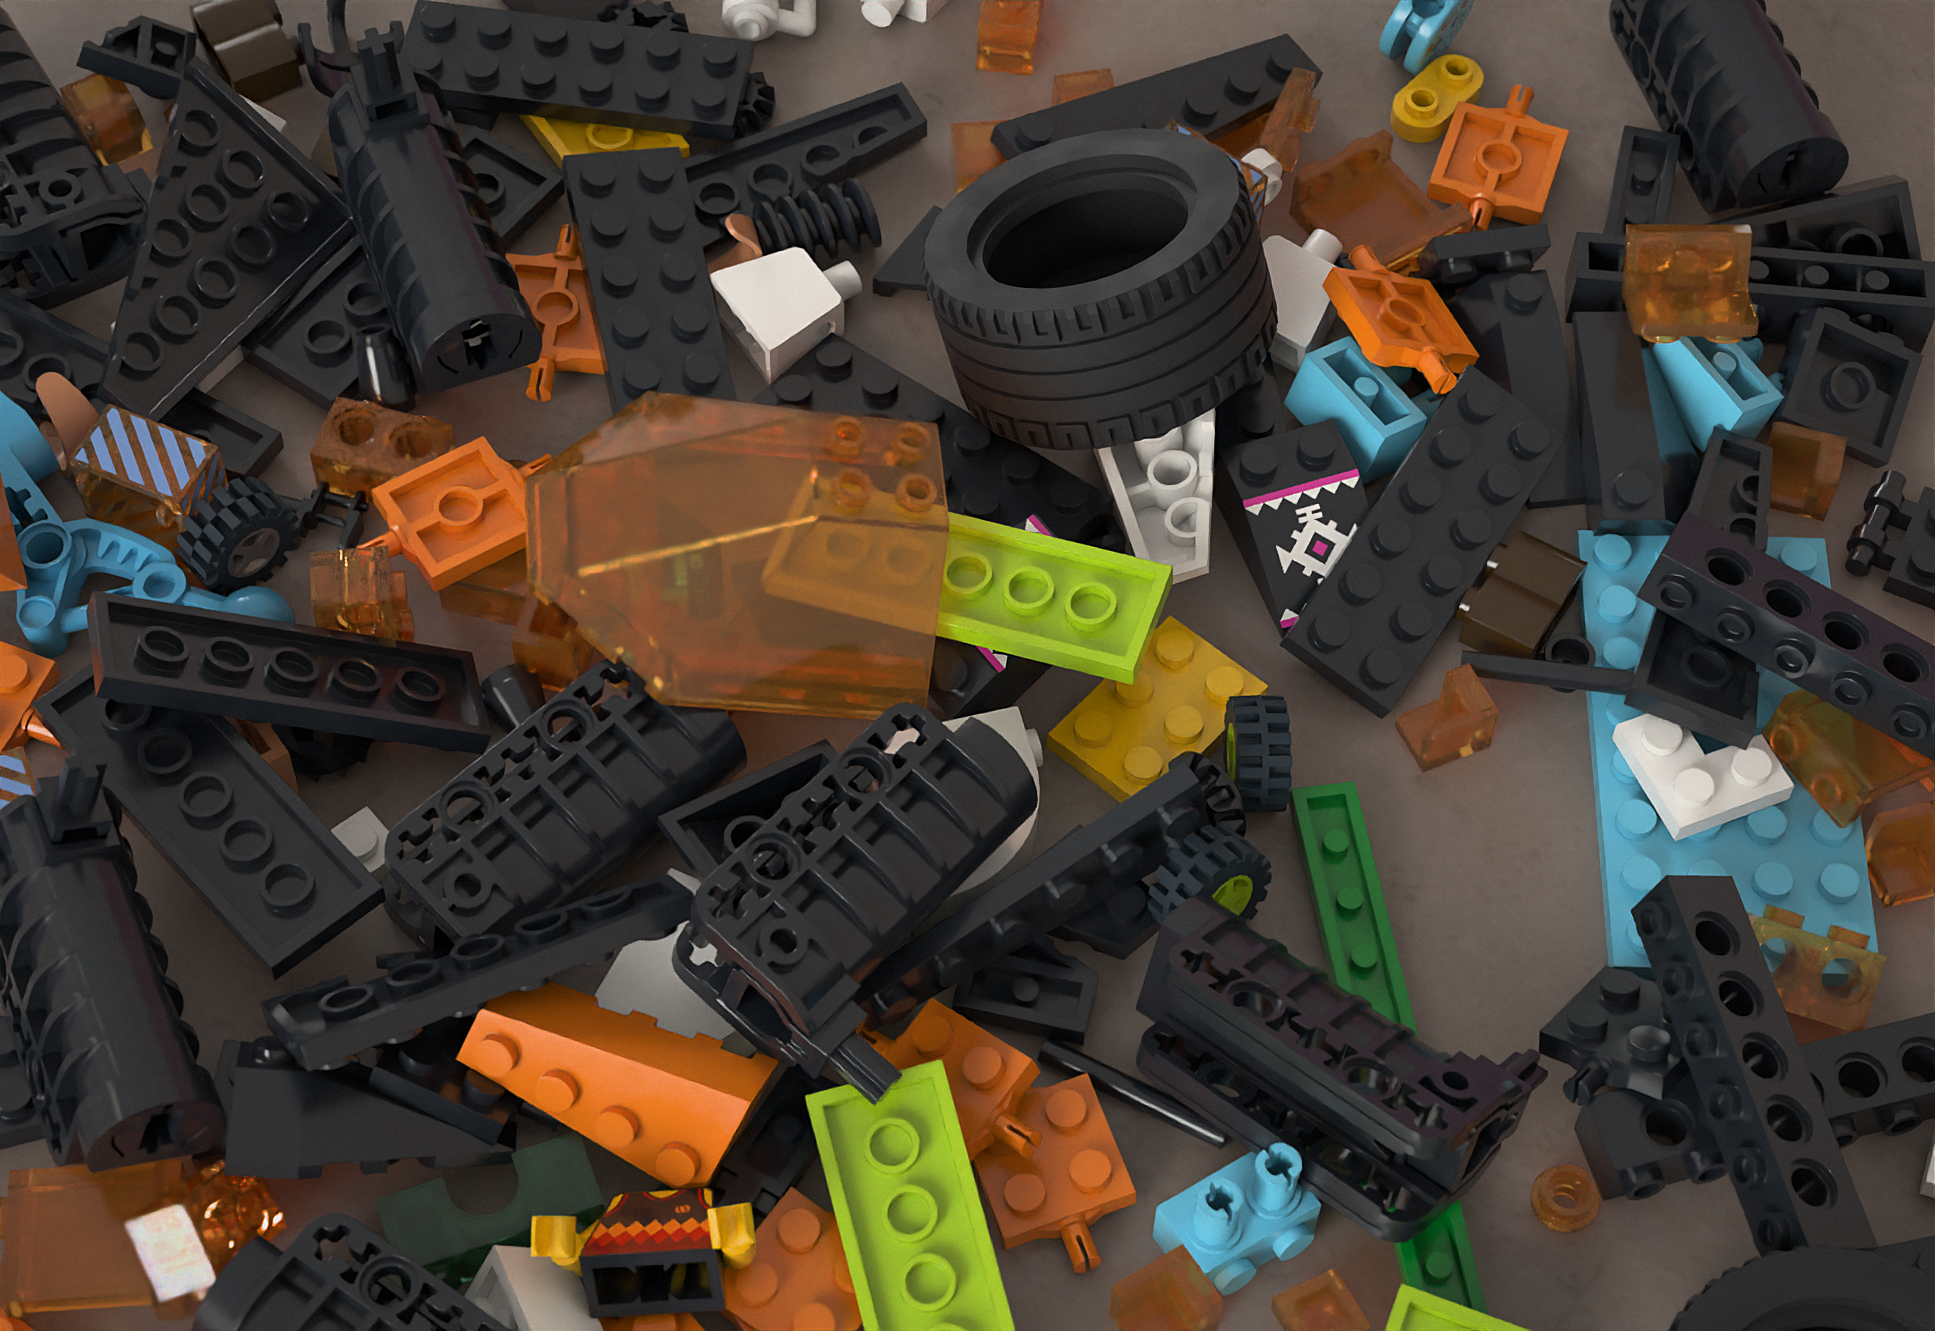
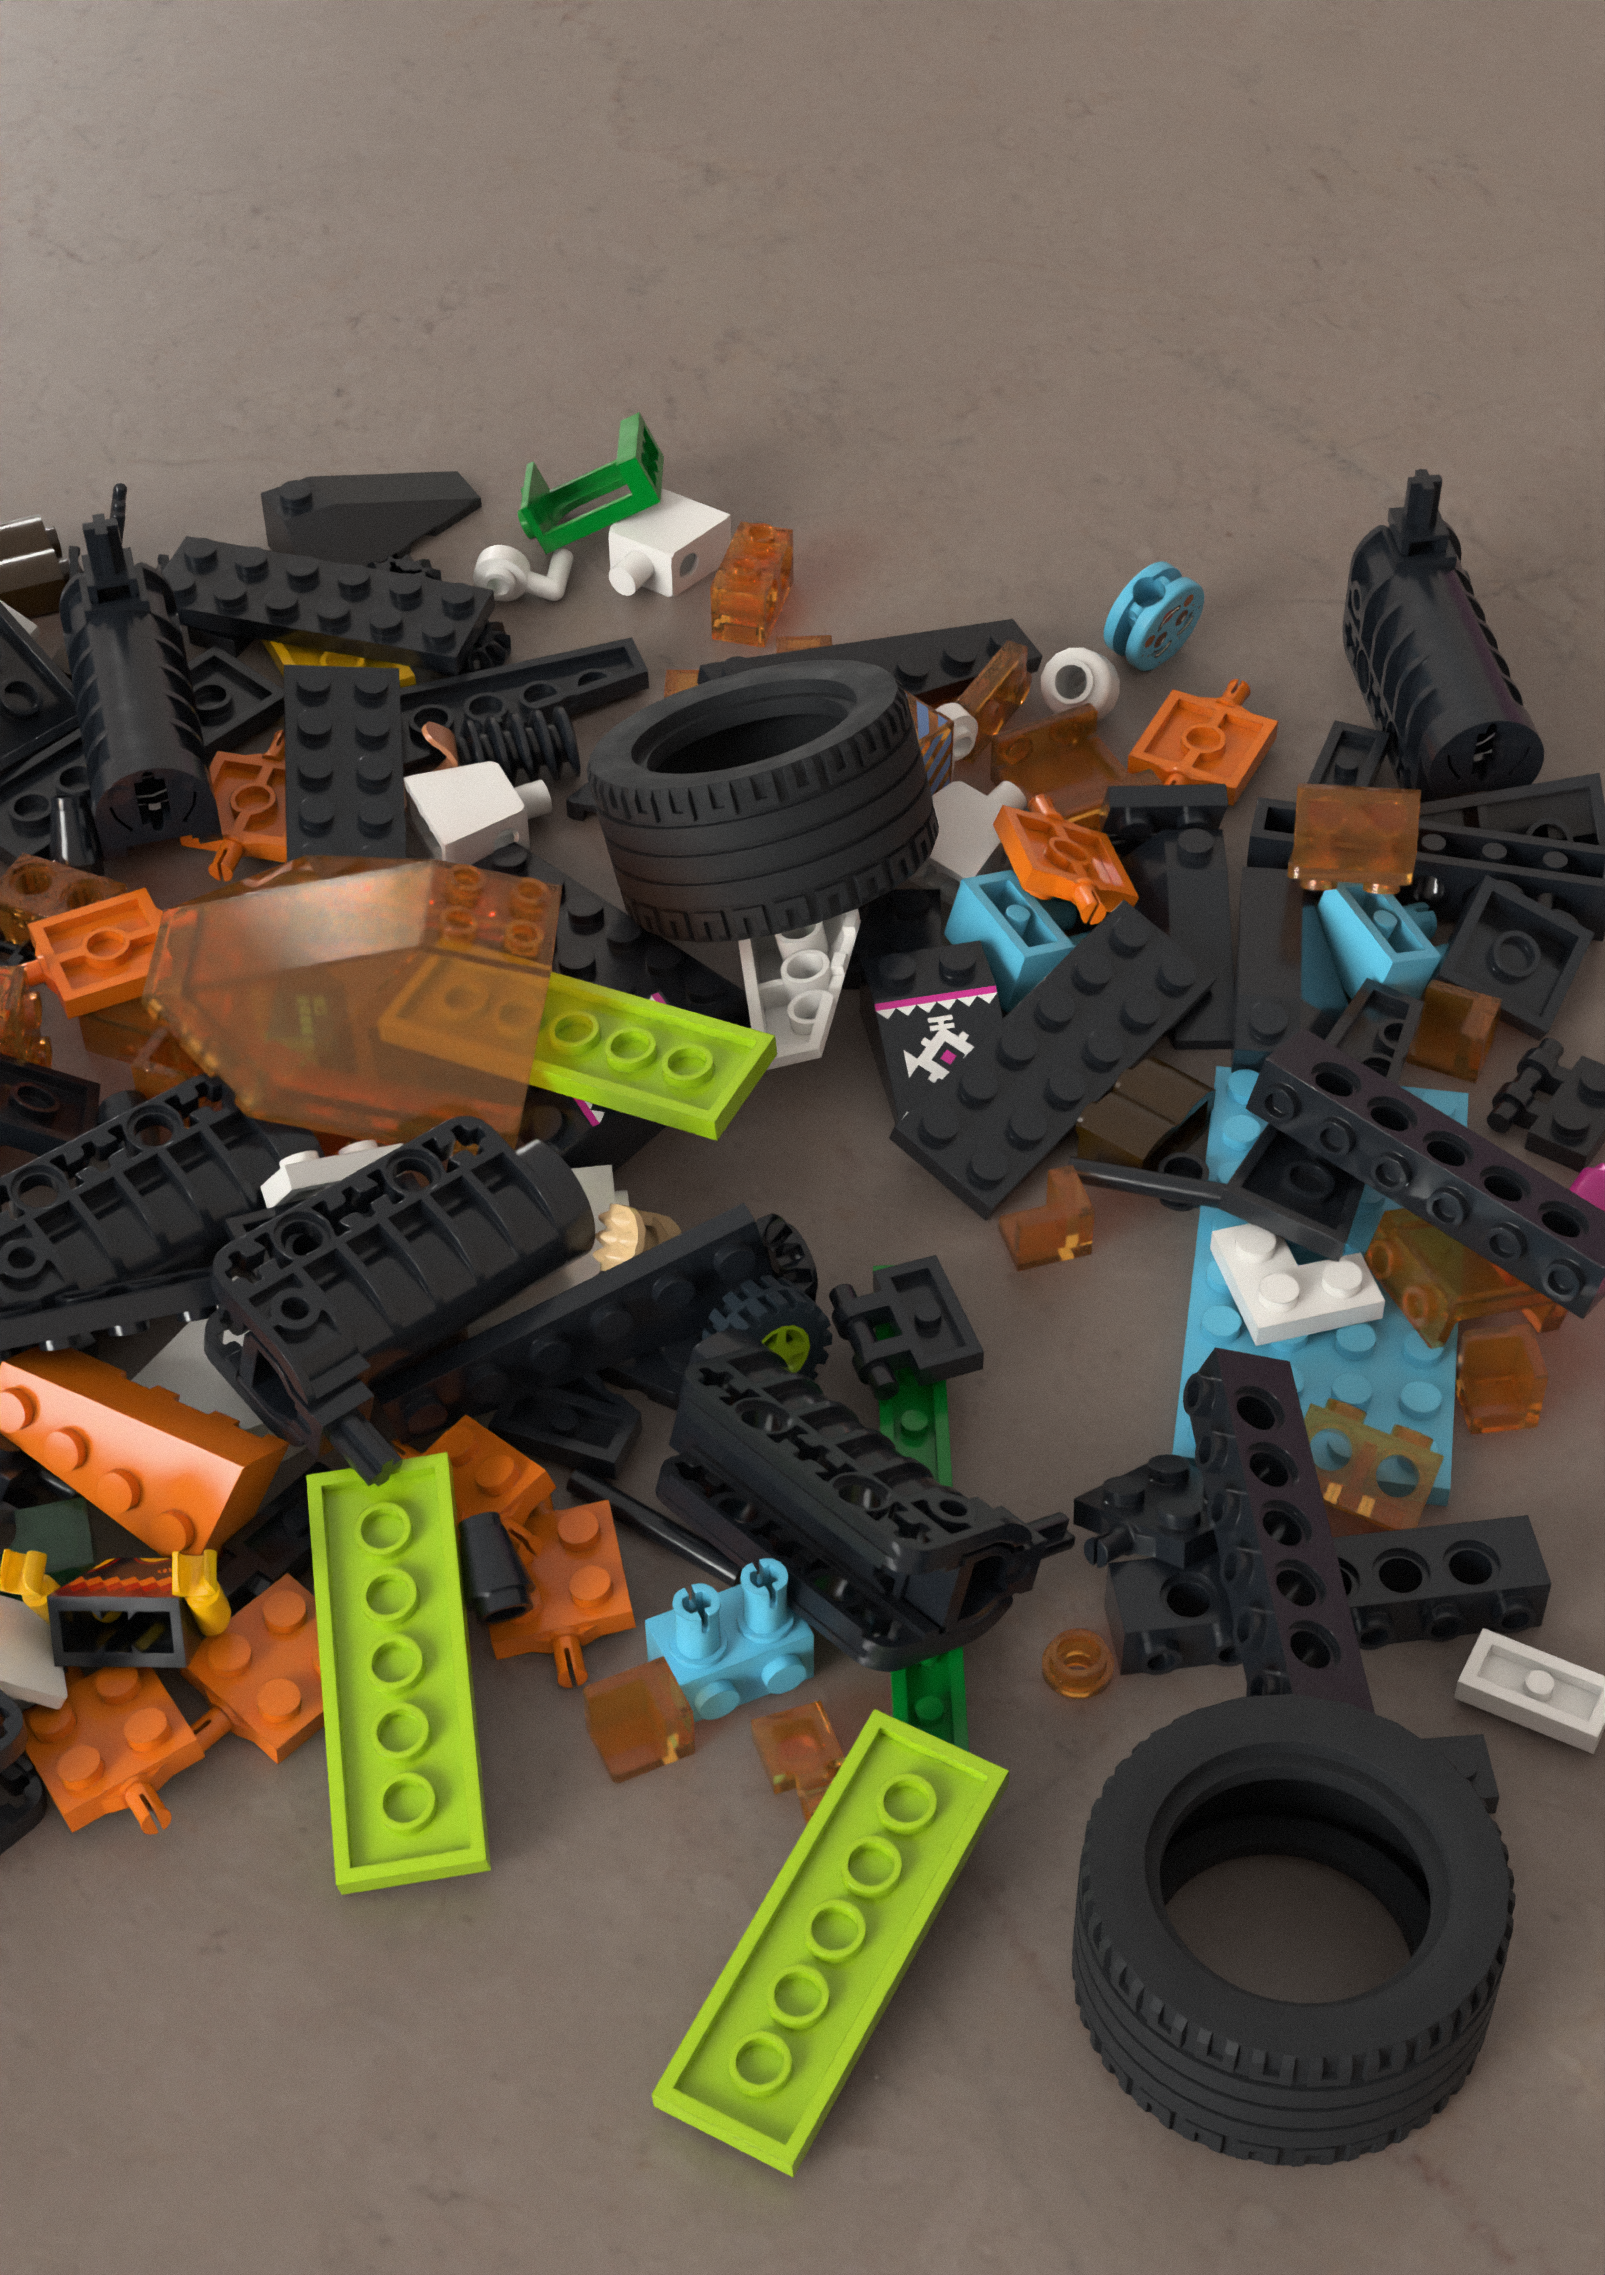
camera: 10 degrees right, 10 degrees down
(775, 742) = (307, 1174): none -> white plate
(1002, 1172) = (493, 1572): none -> black cone
(1066, 796) = (630, 1234): none -> tan piece
(1178, 704) = (773, 1169): yellow plate -> none
(1258, 751) = (842, 1226): black wheel -> none
(1347, 111) = (1068, 670): none -> white head
(1360, 850) = (926, 1322): none -> black plate
(1437, 89) = (1149, 685): yellow plate -> none

